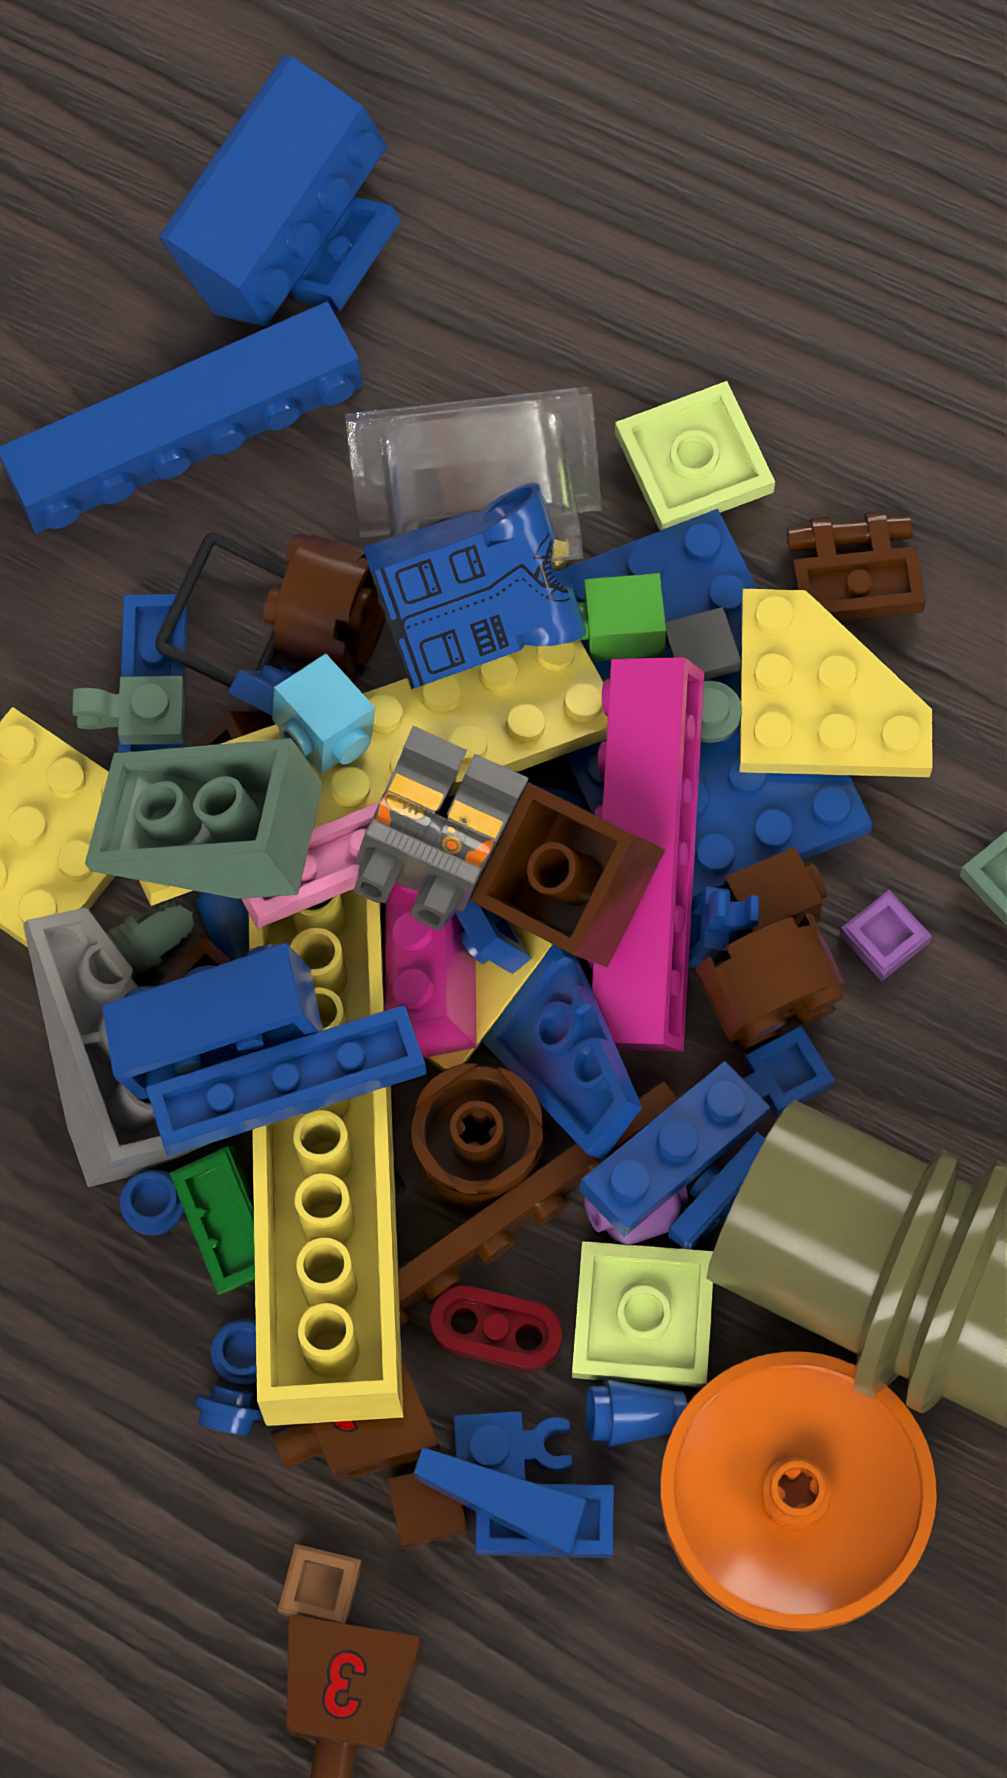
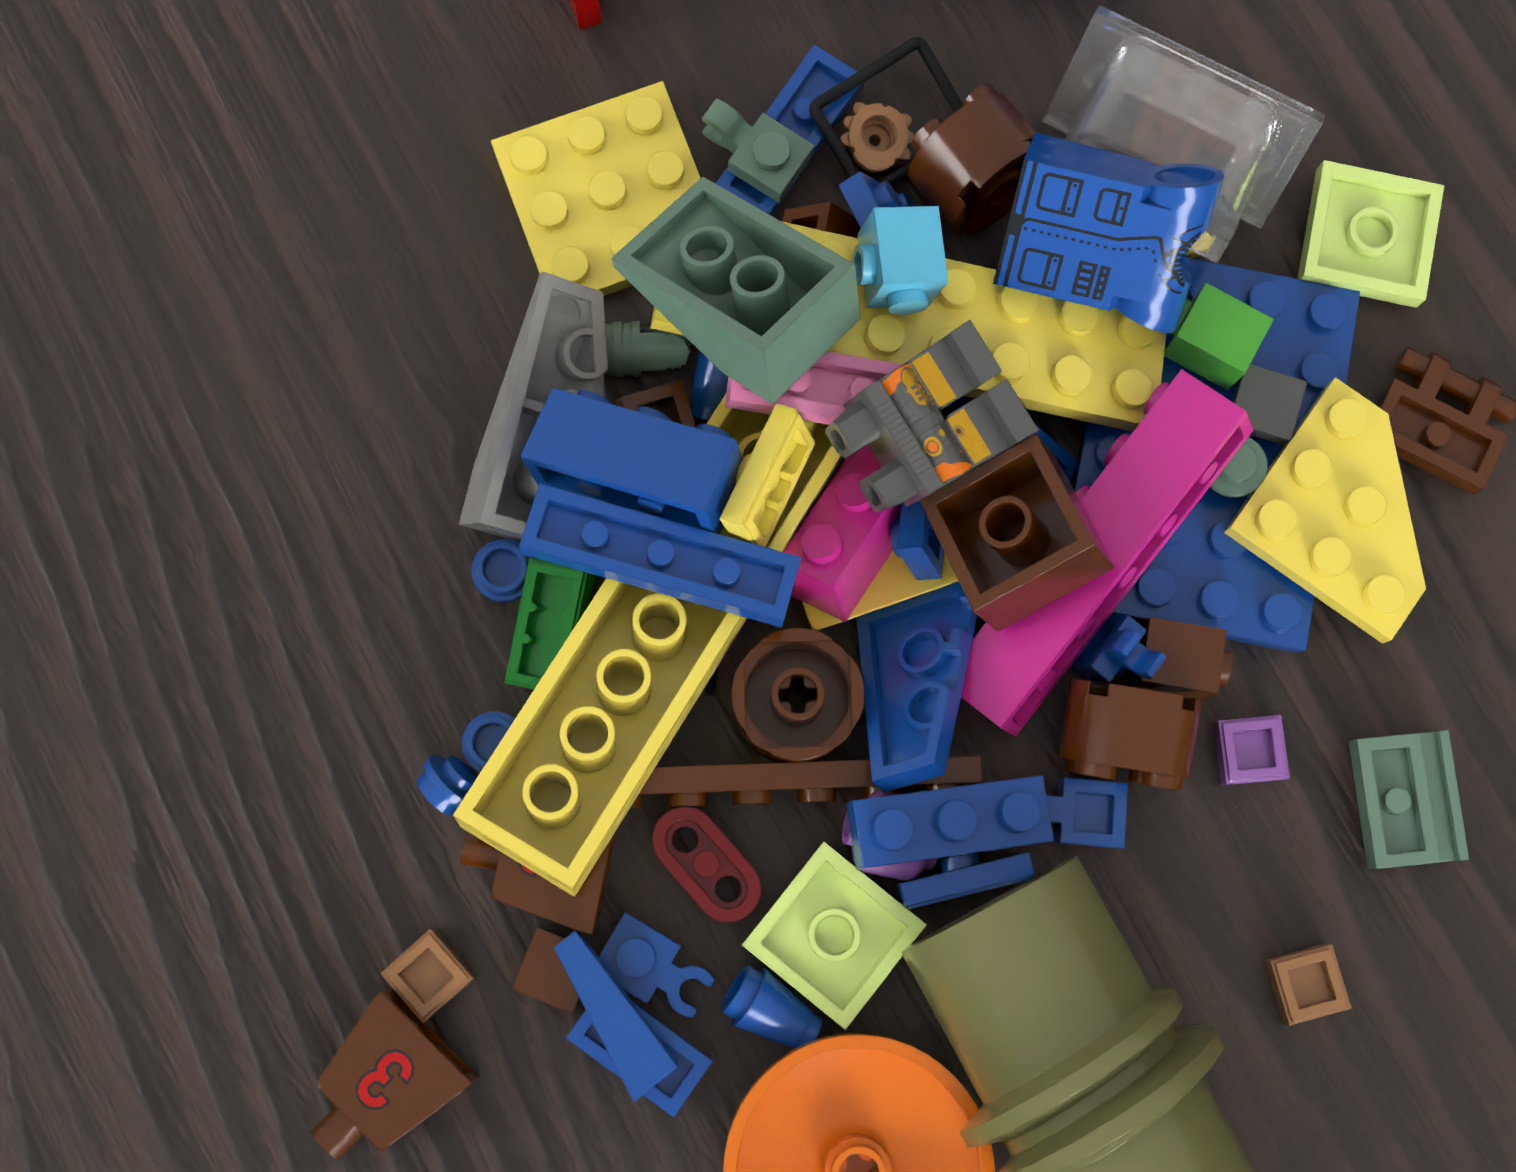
camera: 25 degrees right, 10 degrees up
(231, 625) = (883, 125): none -> medium nougat animal
(332, 959) = (768, 477): none -> light yellow plate

